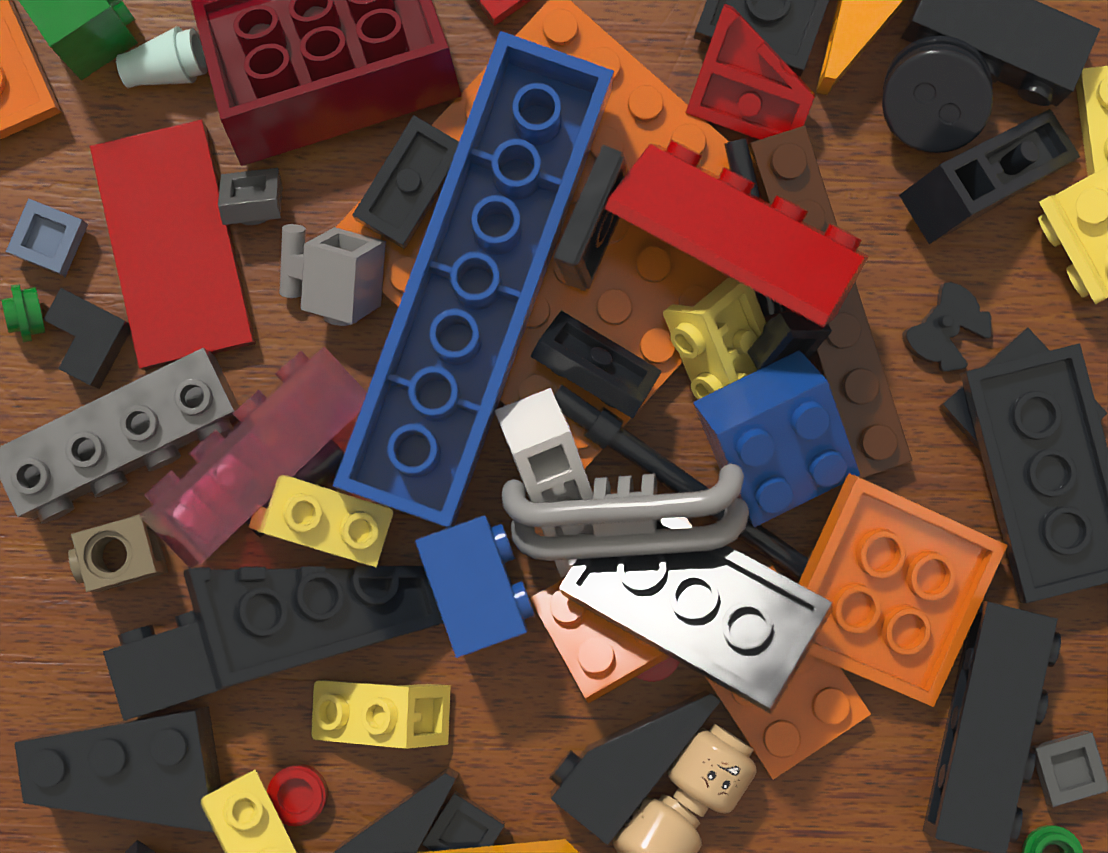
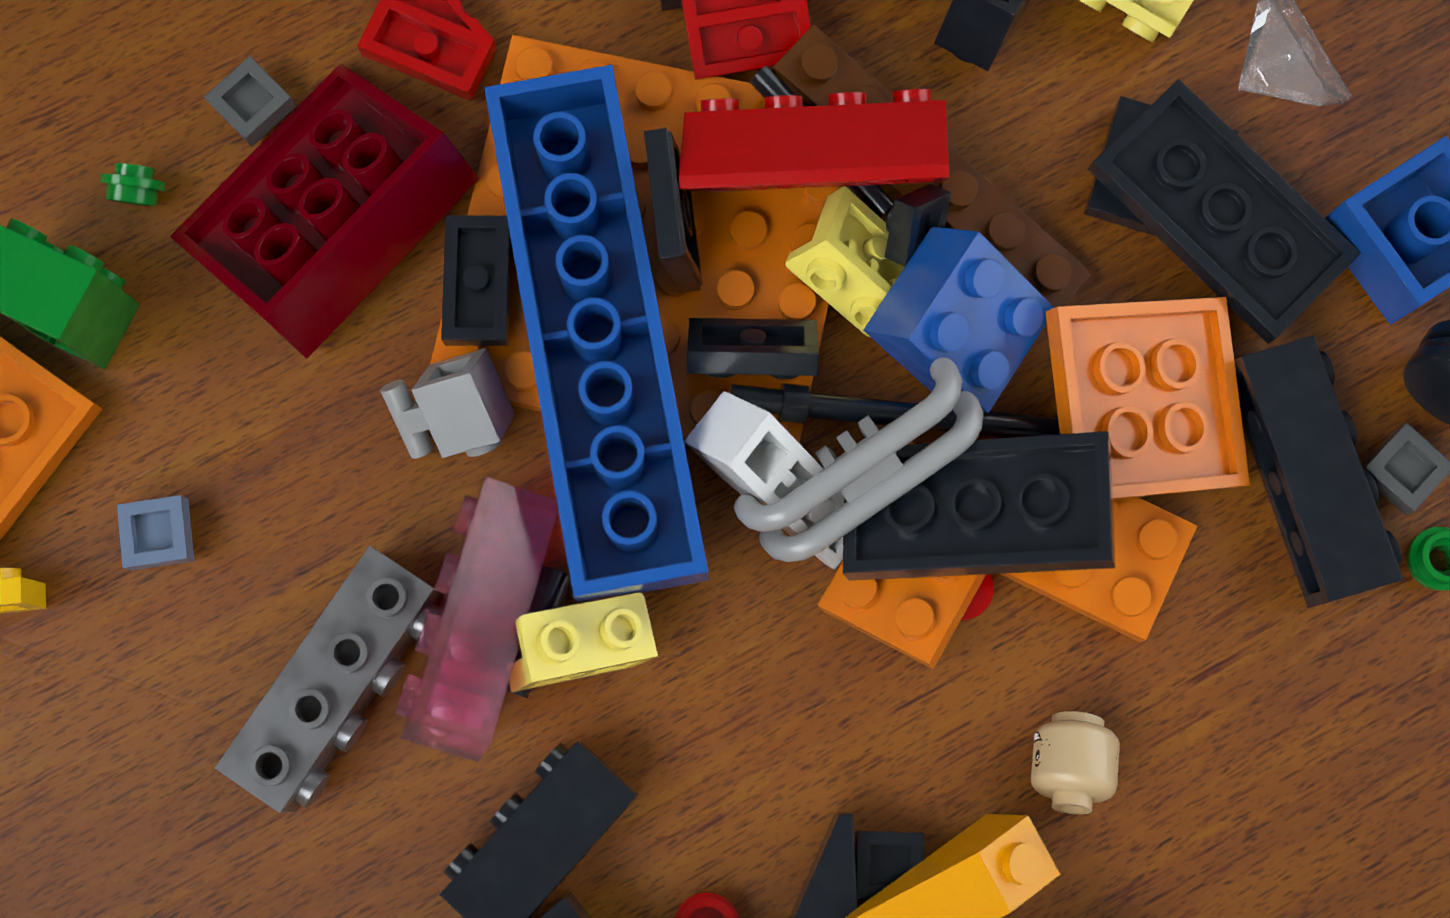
camera: 30 degrees left, 5 degrees down
(23, 312) = (173, 616): green plate -> none
(96, 339) = (257, 598): black piece -> none
(143, 558) = (427, 789): dark tan brick -> none
(166, 59) = (177, 301): light aqua cone -> none
(171, 244) = (281, 471): red tile -> none
(250, 196) = (332, 383): dark grey plate -> none
(286, 618) = (597, 757): black wing -> none
(381, 714) = (740, 798): light yellow bracket -> none
(474, 584) = (761, 615): blue brick -> none
(620, 770) = (1001, 715): black slope -> none
(712, 771) = (1085, 663): tan head -> none
(931, 338) = (1044, 120): black piece -> none

